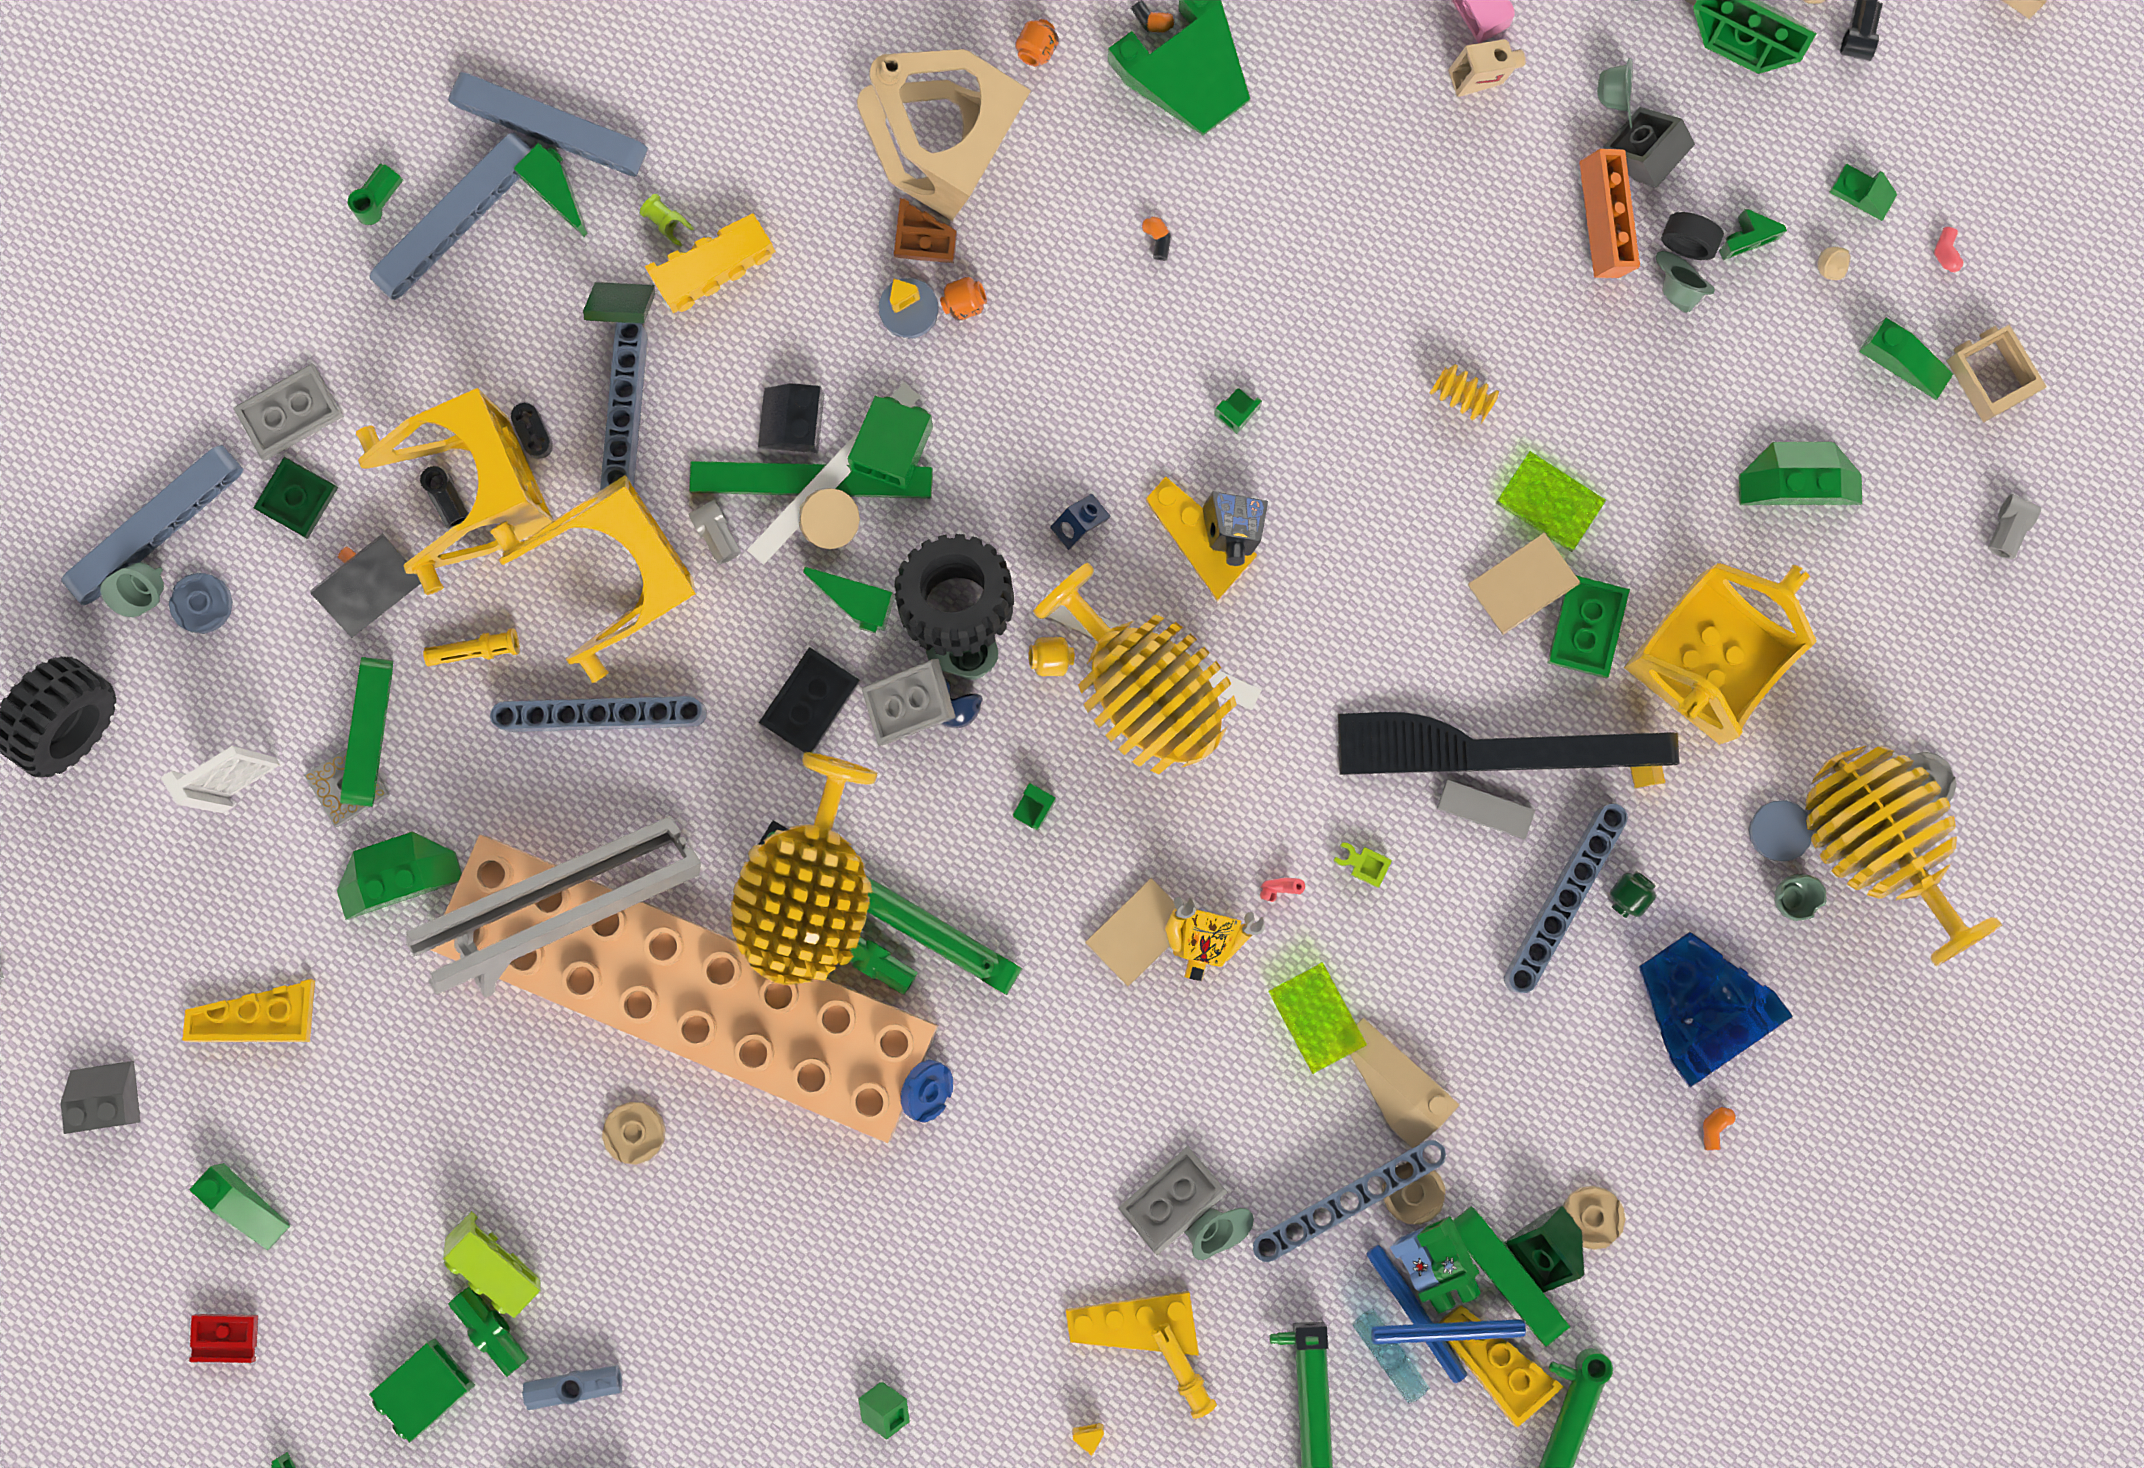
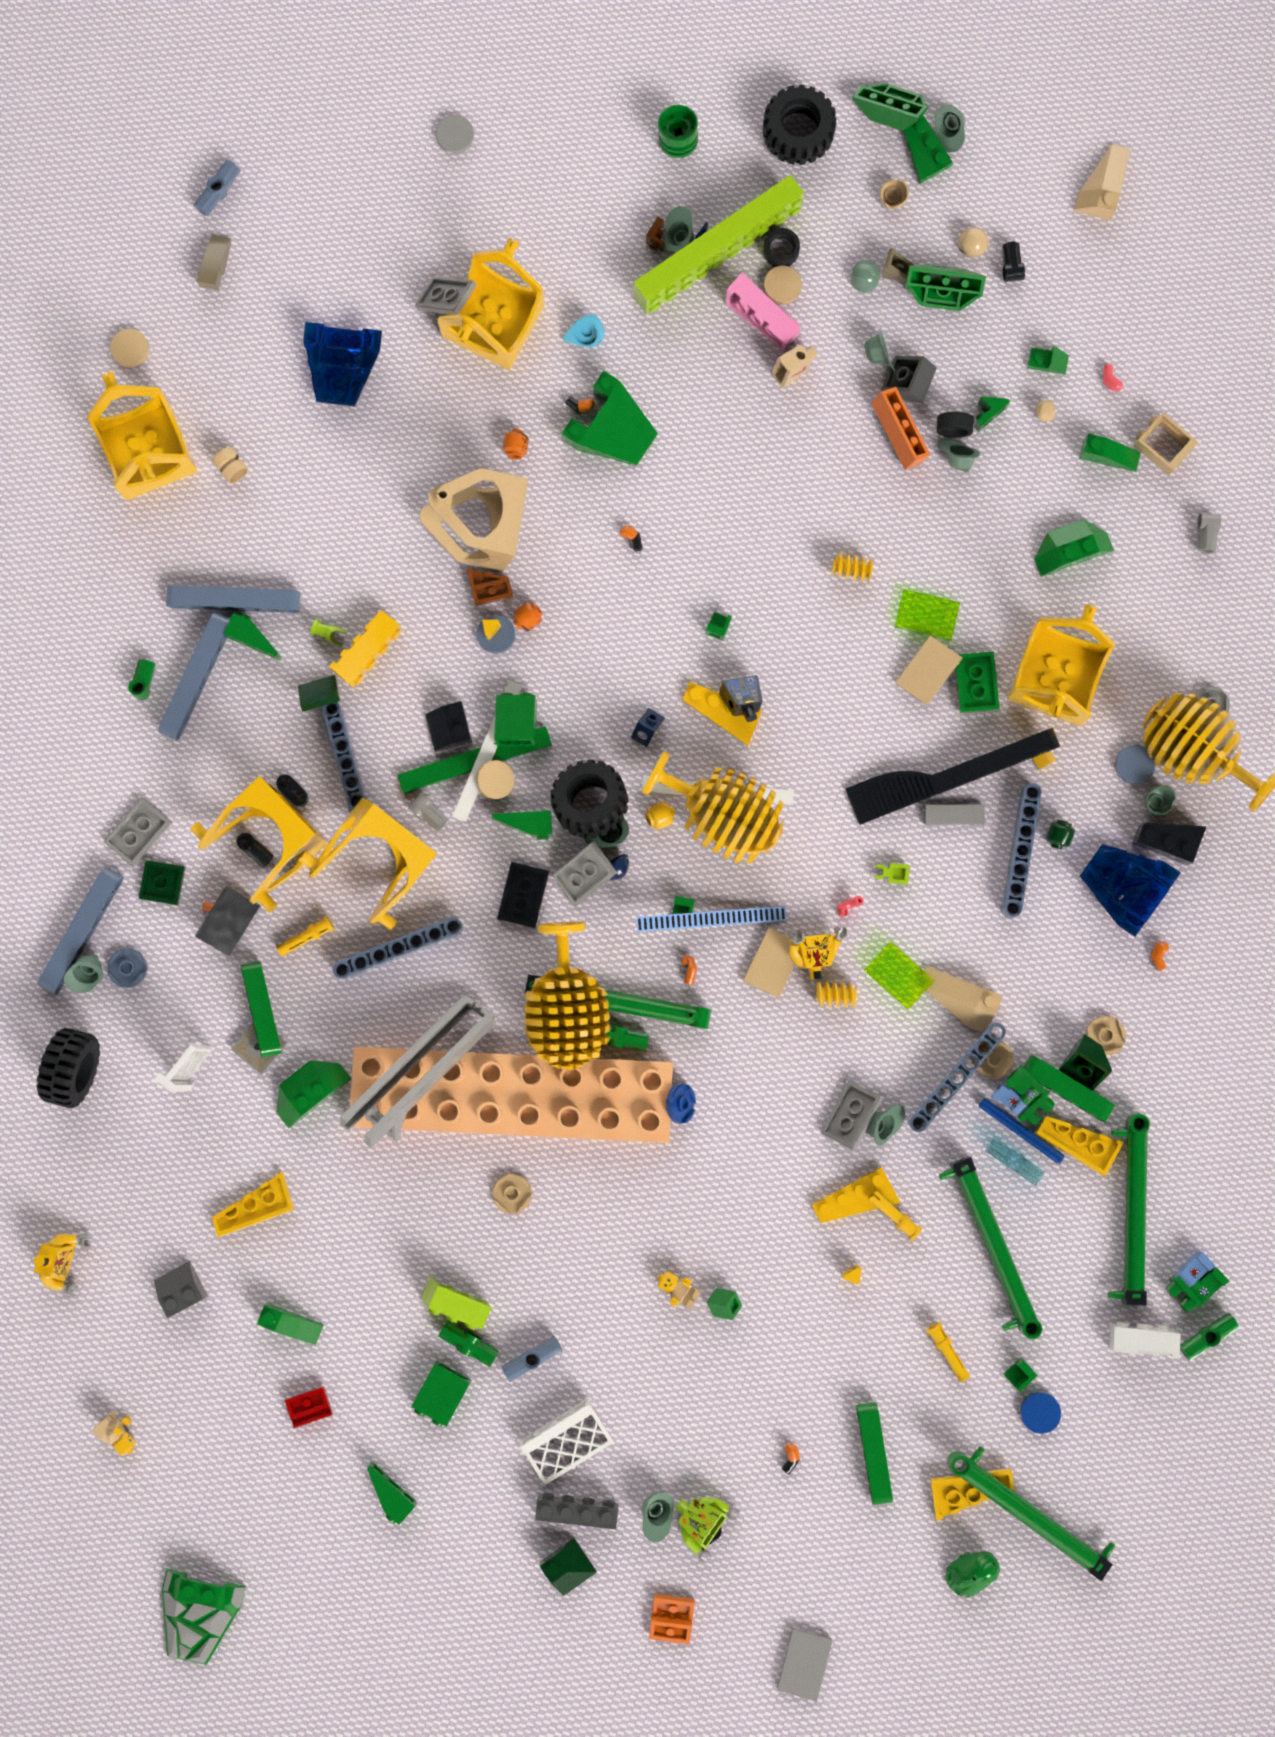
camera: 20 degrees left, 0 degrees up
(827, 1366) = (680, 1290): none -> piece
(1015, 899) = (691, 969): none -> orange arm
(1070, 834) = (712, 918): none -> light blue sticker
(1214, 1012) = (835, 994): none -> yellow piece
(1448, 1331) = (1044, 1133): blue axle -> none
(1794, 963) = (1170, 840): none -> black wedge

